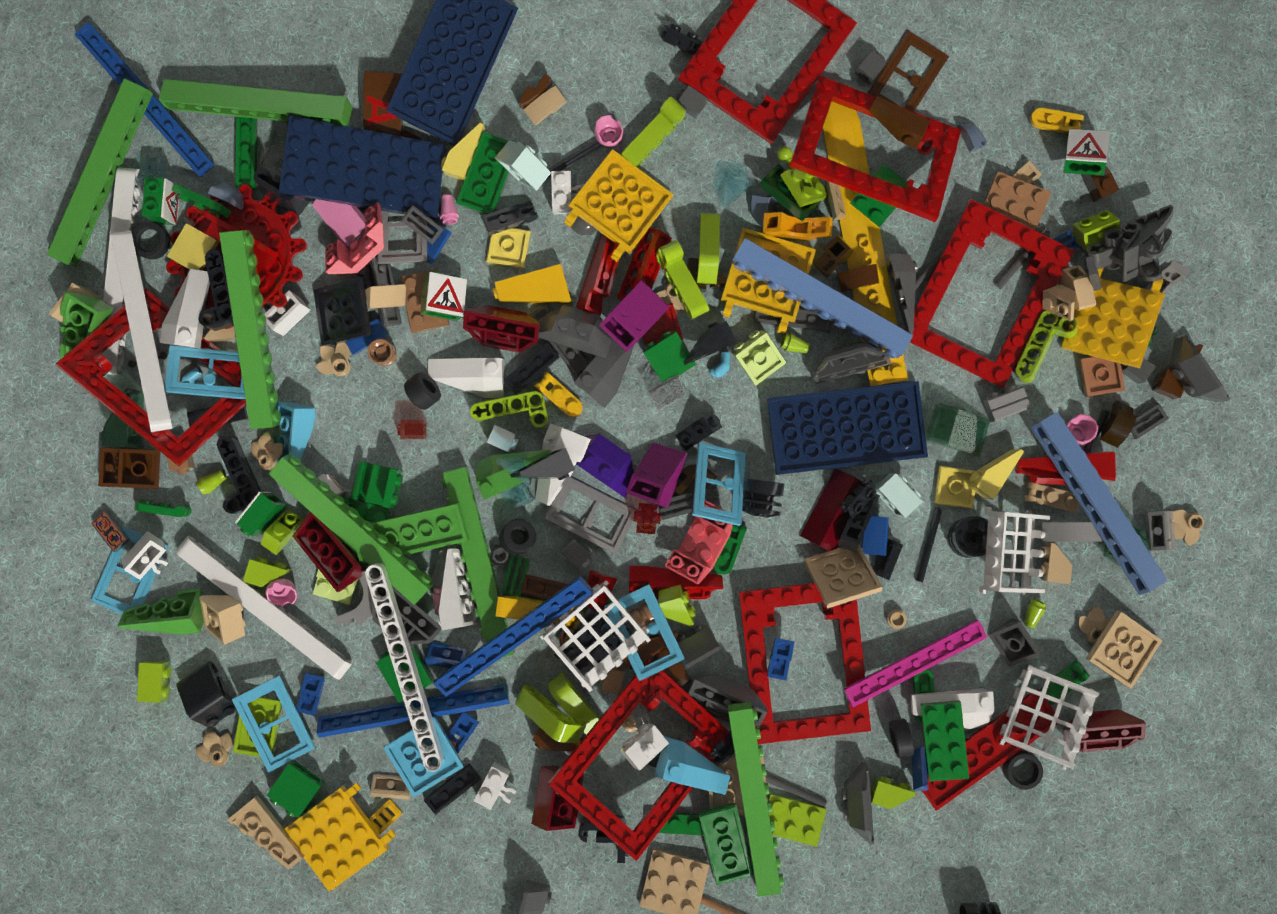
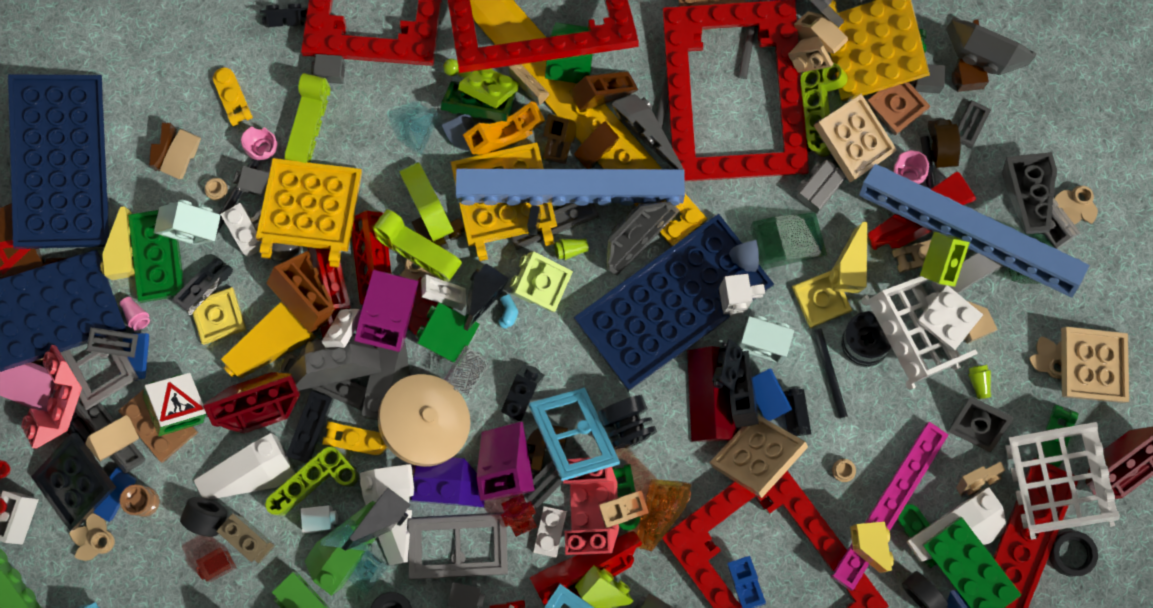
camera: 25 degrees left, 10 degrees down
(444, 423) = (245, 538): none -> dark tan hips
(557, 148) = (216, 189): none -> tan plate
(579, 265) = (301, 291): none -> dark orange wedge
(587, 157) = (251, 181): none -> dark grey brick
(595, 310) = (342, 328): none -> white plate
(607, 80) = (231, 95): none -> yellow plate
(617, 411) = (423, 420): none -> tan dish
(662, 542) = (550, 532): none -> white plate
(683, 325) = (443, 292): none -> white plate
(724, 557) = (623, 509): none -> tan slope
(750, 573) = (665, 504): none -> clear orange plate
(780, 309) = (534, 220): none -> black tile
(885, 685) = (871, 544): none -> light yellow slope
(888, 237) = (602, 89): none -> reddish brown slope
(897, 451) = (737, 294): none -> white brick
(920, 426) = (746, 255): none -> sand blue brick
(985, 682) = (972, 482): none -> tan plate
(1040, 556) = (949, 318): none -> white plate
(1054, 383) = (855, 138): none -> tan plate
(1064, 513) = (944, 255): none -> lime brick
(1160, 497) = (1031, 189): none -> dark grey wedge

